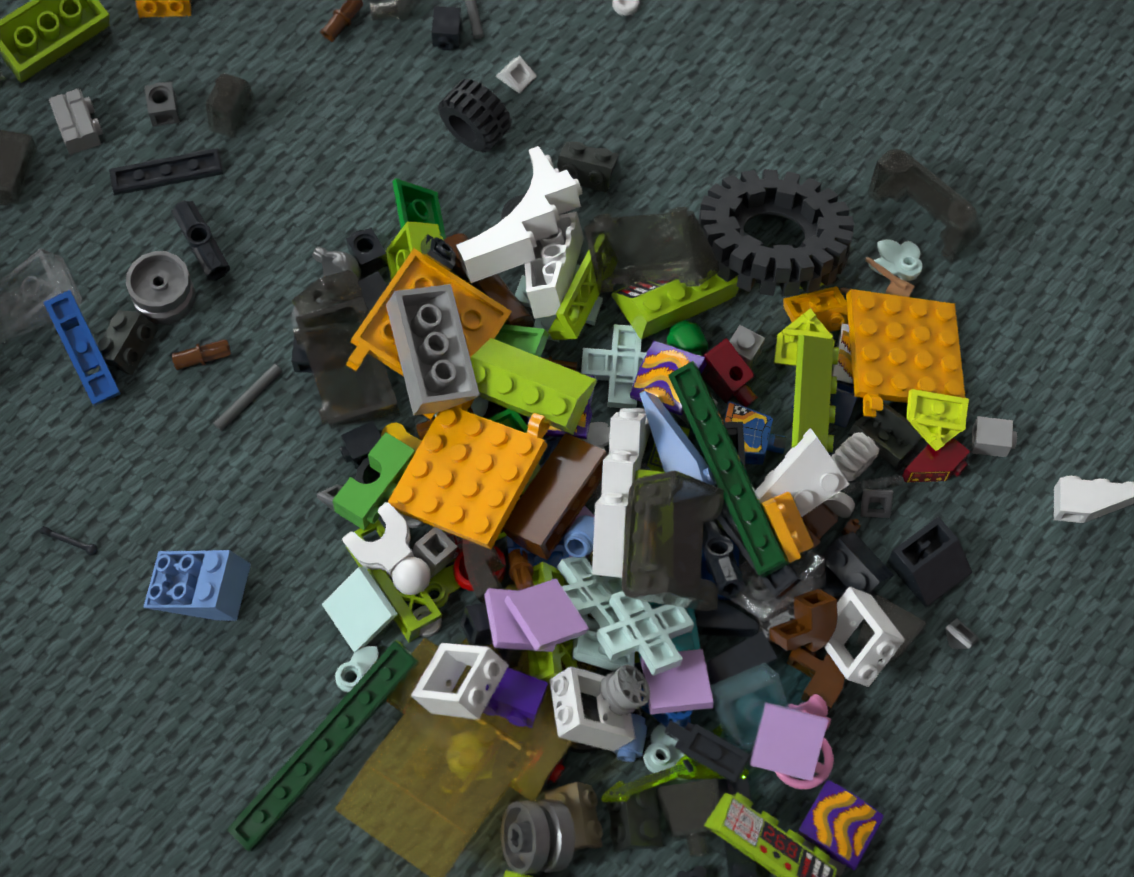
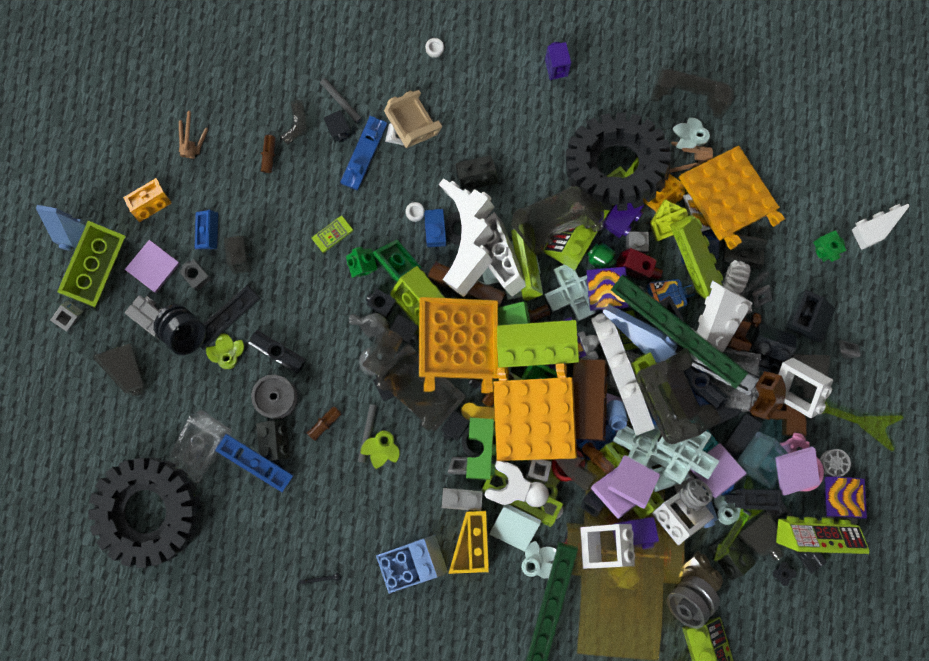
camera: 30 degrees left, 15 degrees up
(102, 161) = (179, 329): none -> black wheel
(119, 70) = (152, 266): none -> lavender tile
(138, 210) = (225, 348): none -> lime plate
(211, 63) = (206, 229): none -> blue slope
(248, 426) = (380, 452): none -> lime plate
(288, 600) = (472, 546): none -> yellow wedge
(313, 538) = (462, 499): none -> light grey brick
(360, 145) = (332, 234): none -> lime tile
(372, 191) = (361, 262): none -> green brick
(431, 348) = (473, 357): light grey slope -> none
(433, 90) = (363, 153): none -> blue hinge
(438, 251) = (434, 290): black slope -> none
(474, 115) = (394, 180): black tyre -> none
(480, 171) = (415, 211): none -> white tile
(489, 201) = (435, 228): none -> blue slope
(543, 62) = (411, 119): none -> tan panel
(744, 309) = (619, 221): none -> dark purple brick
(769, 84) = (557, 60): none -> dark purple brick
(788, 525) = (733, 348): light orange bracket -> none
(855, 771) = (835, 462): none -> light grey wheel
(936, 416) = (772, 227): neon yellow slope -> none
(939, 464) = (782, 250): dark red slope -> none
(939, 755) = (871, 424): none -> clear neon green piece
(993, 436) = (804, 219): light grey brick -> none
(1007, 486) = (830, 247): none -> green brick

